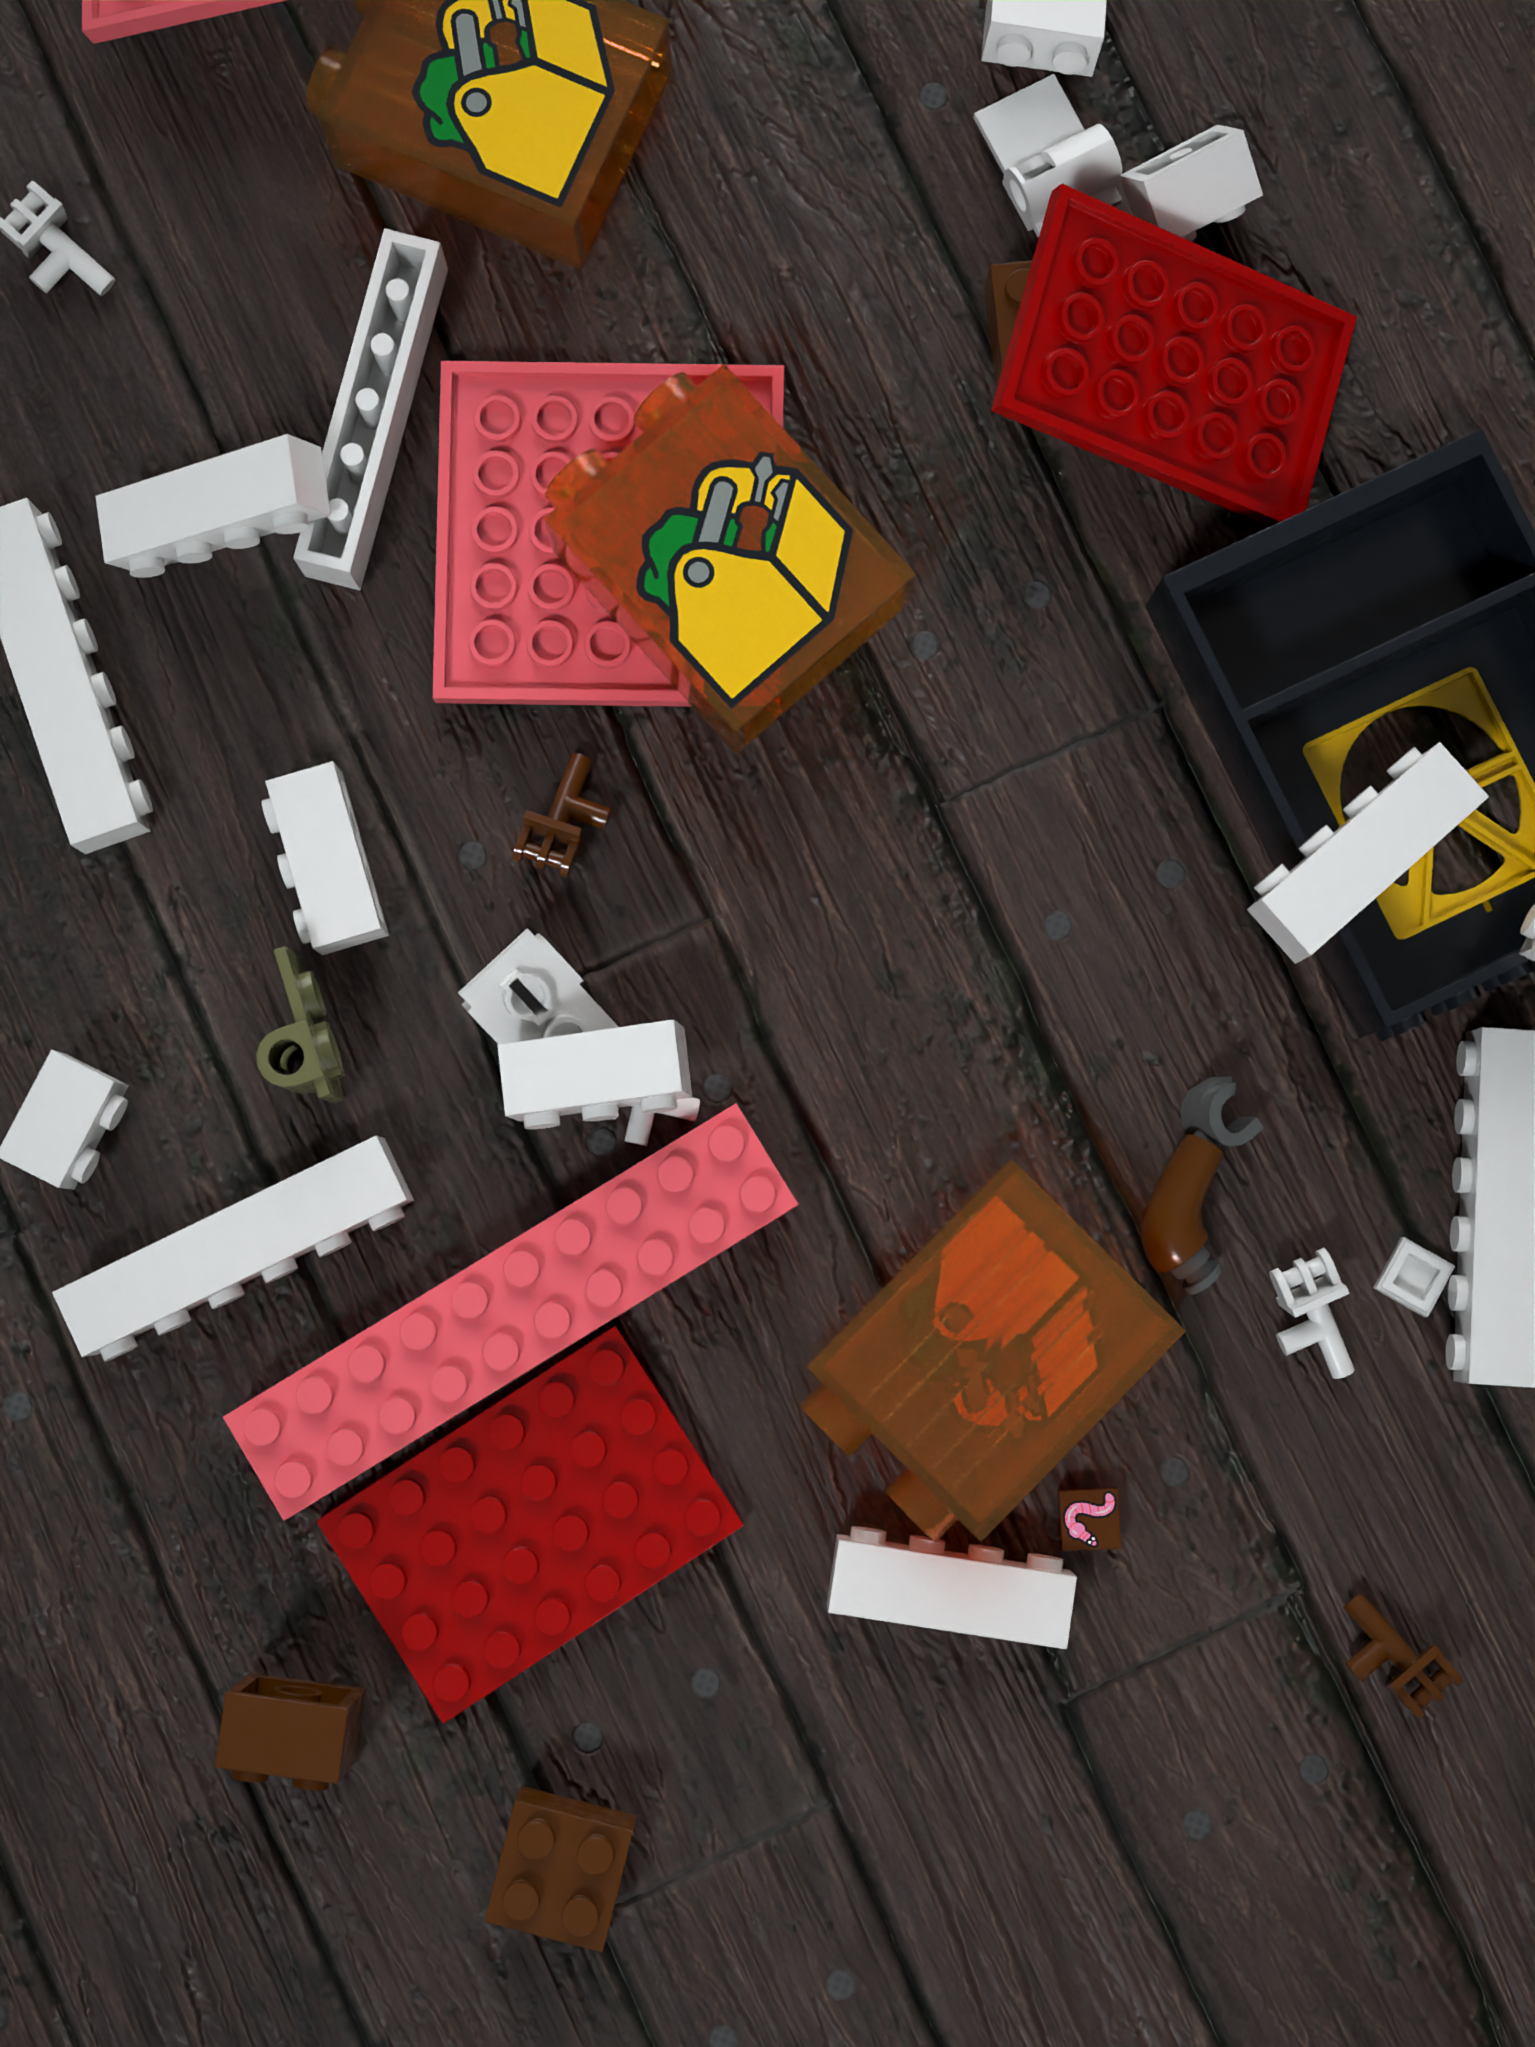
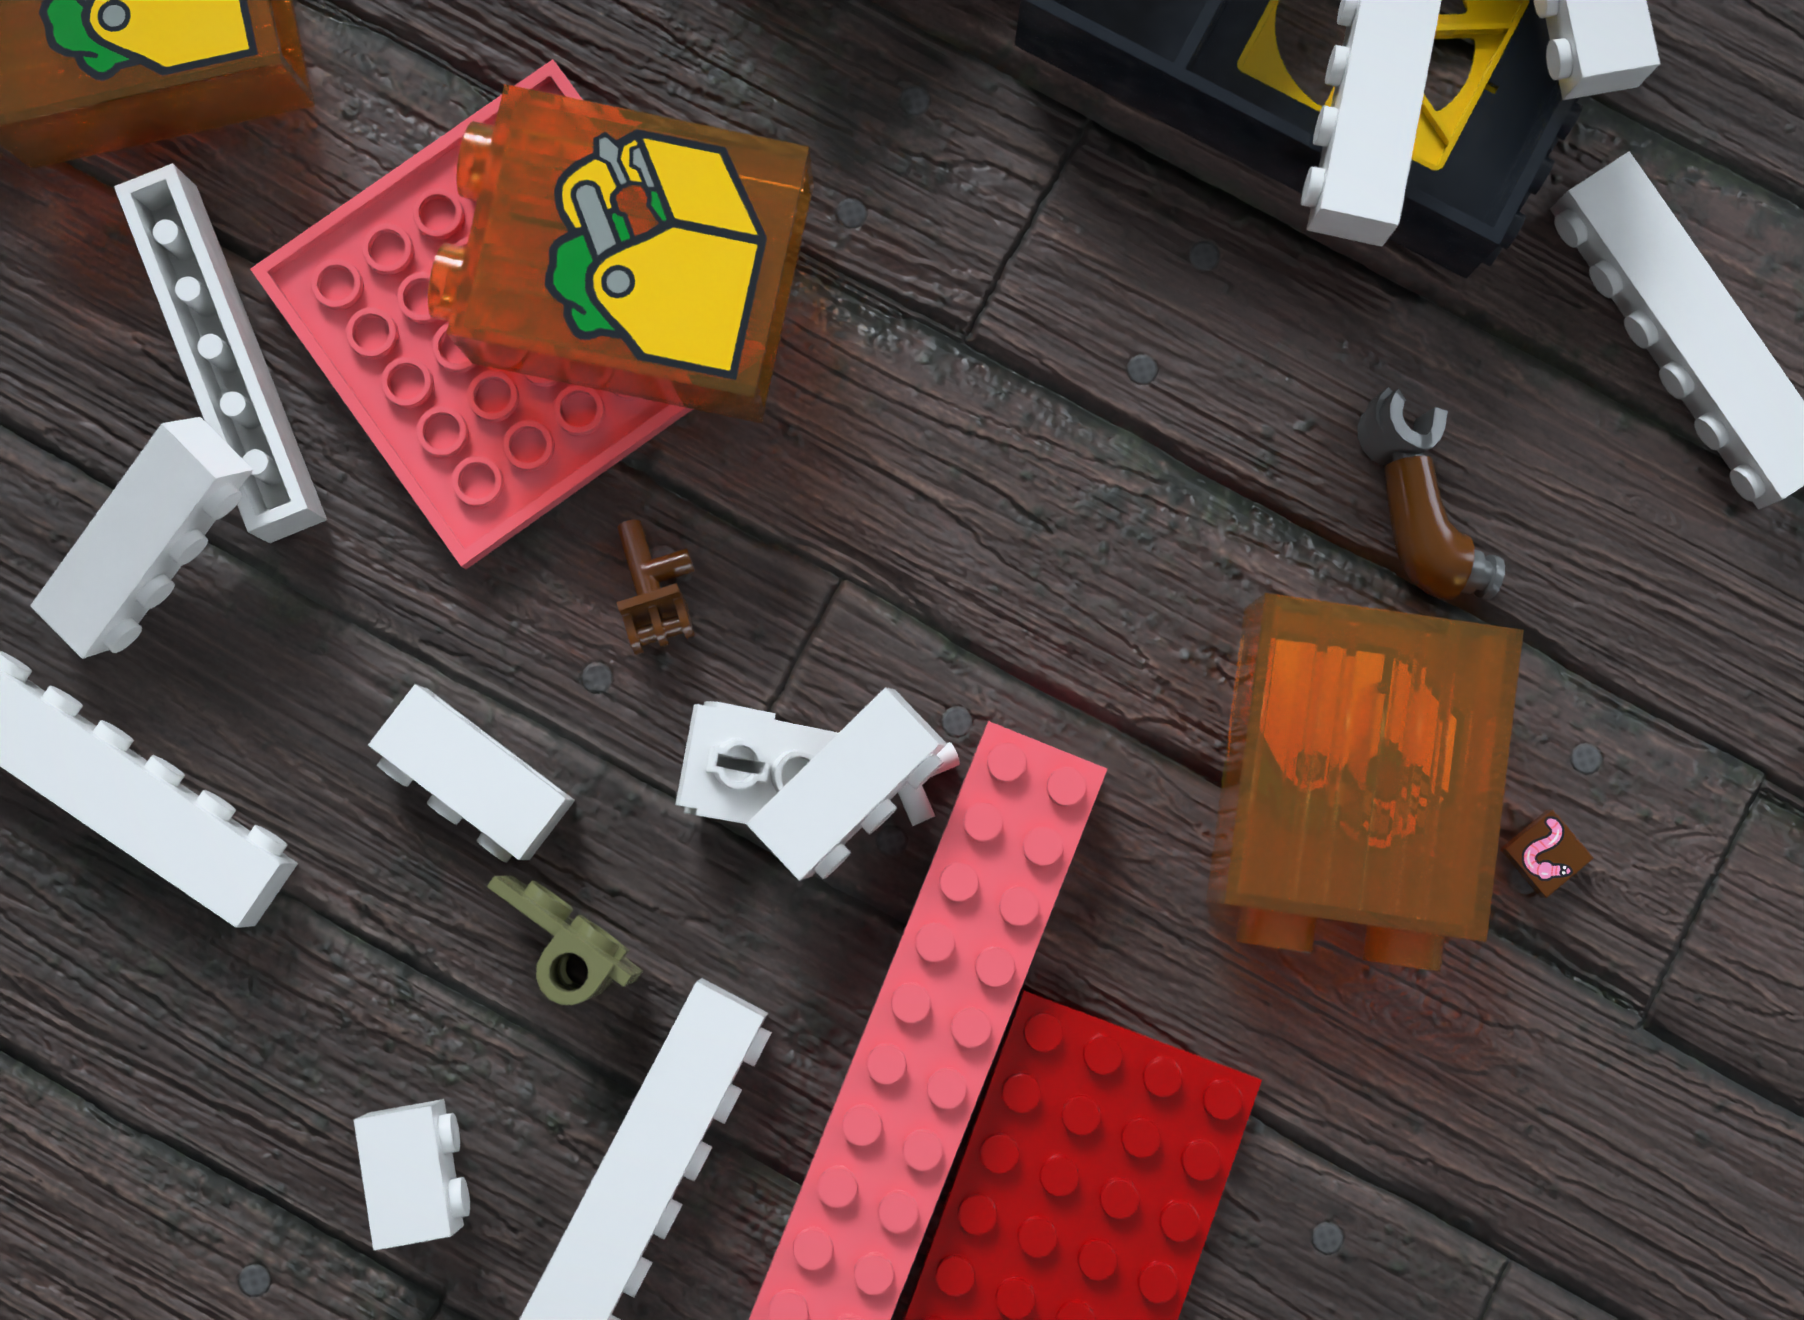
camera: 35 degrees left, 0 degrees up
(952, 1589) = (1479, 1001): white brick -> none
(1313, 1299) = (1588, 522): white arm -> none
(1414, 1277) = (1662, 446): white tile -> none

